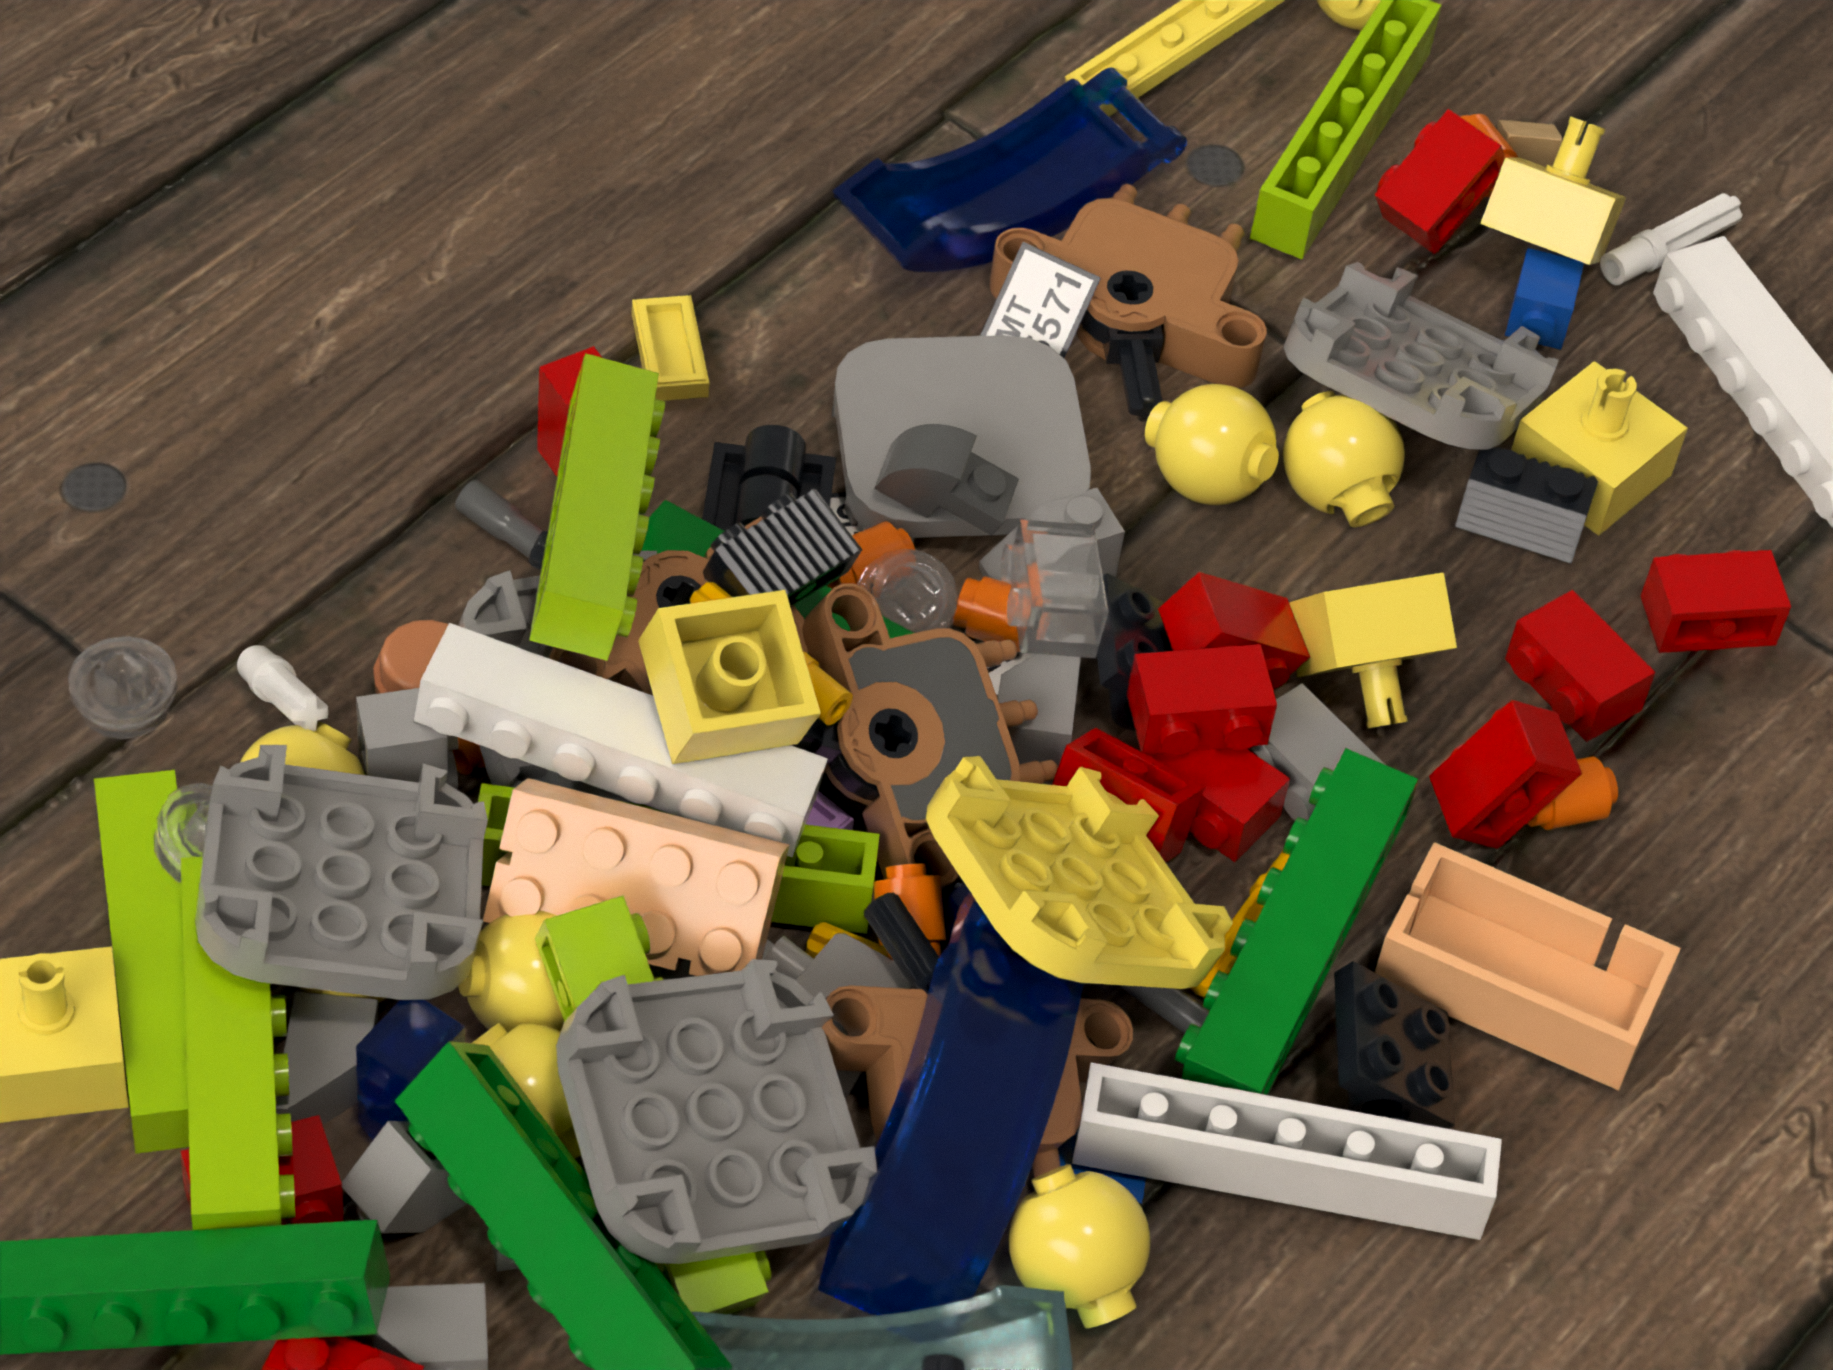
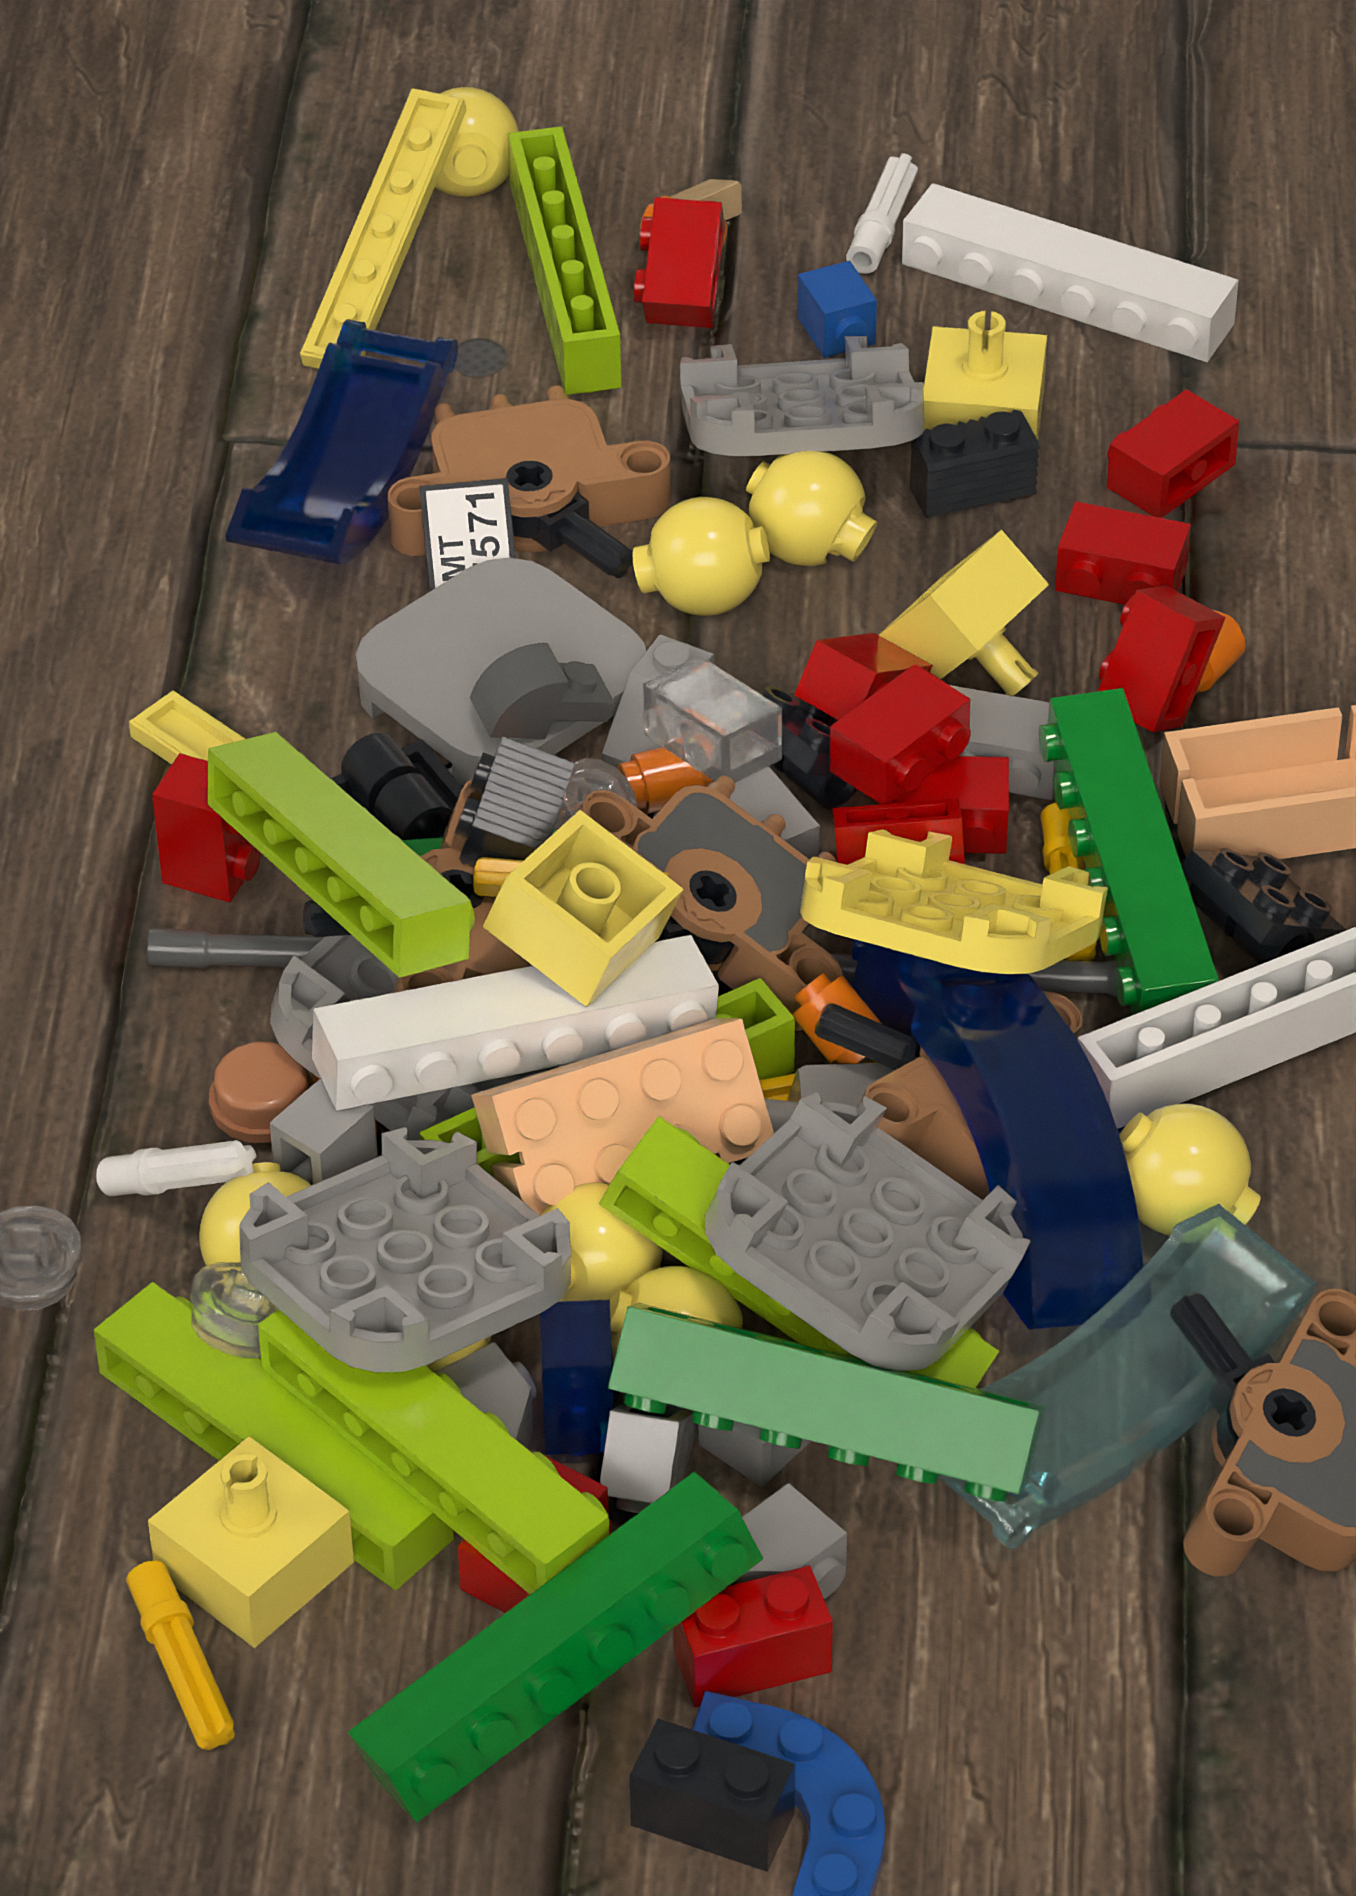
camera: 30 degrees left, 5 degrees down
(1557, 202) = (791, 226): light yellow brick -> none

